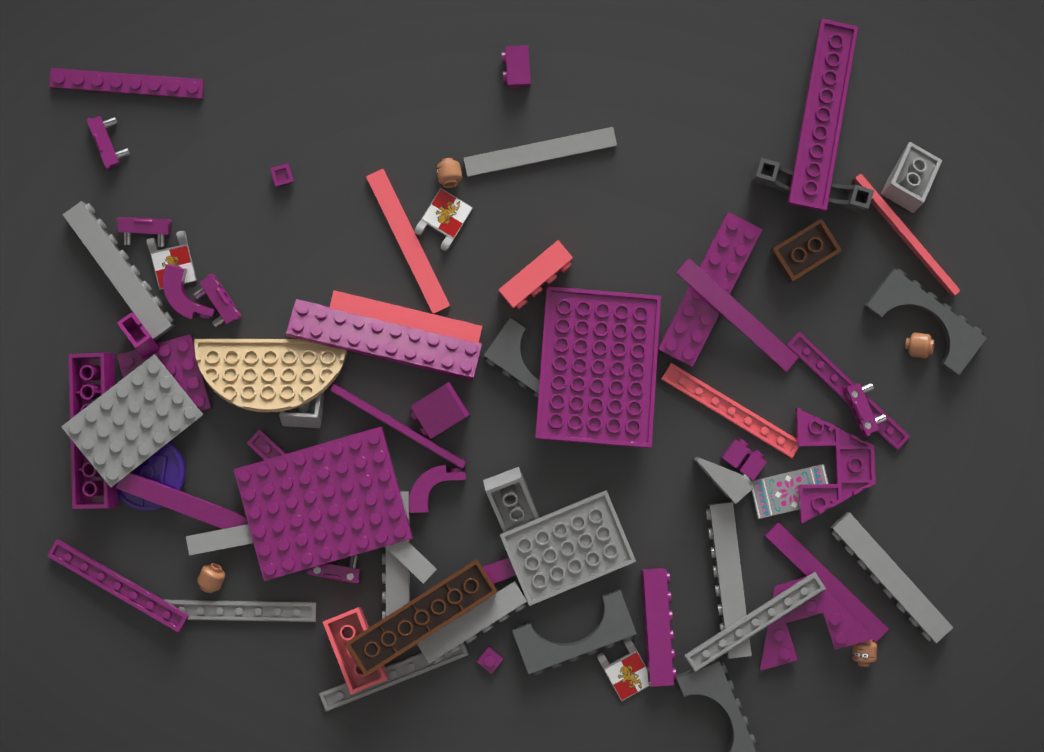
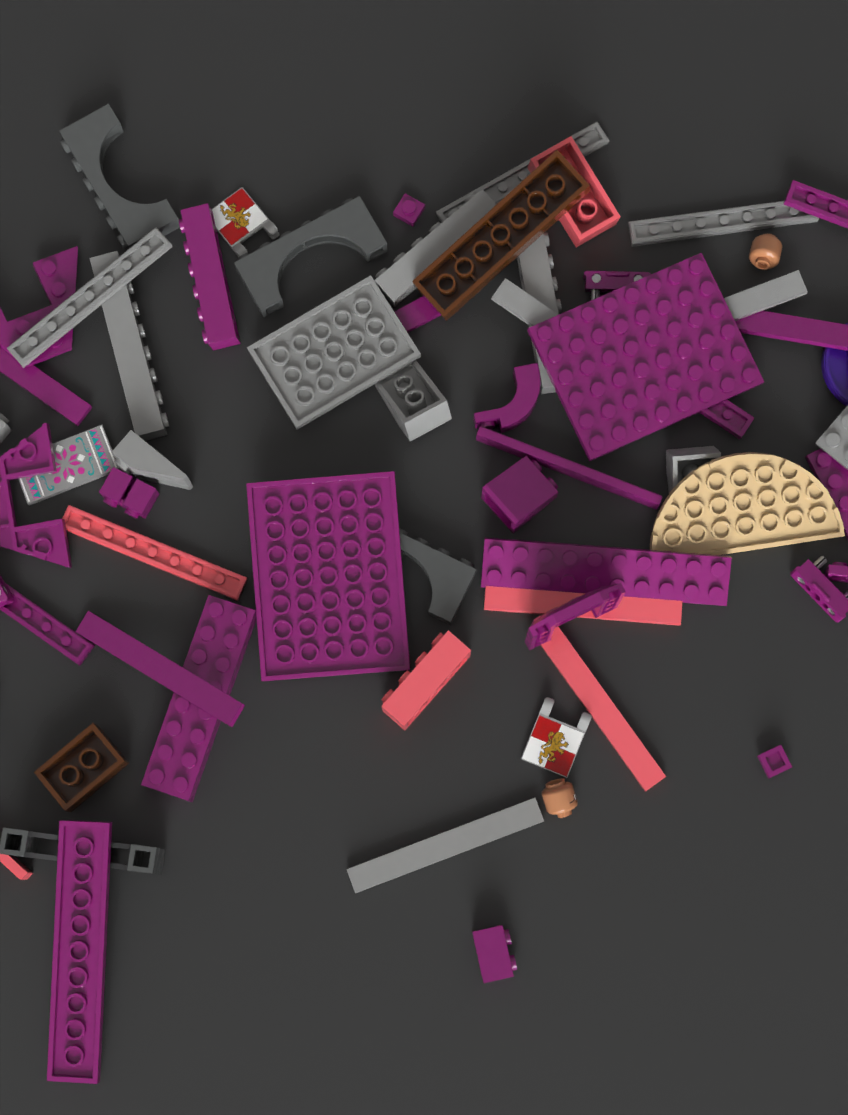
camera: 175 degrees right, 10 degrees down
(416, 305) = (598, 601): none -> magenta wedge

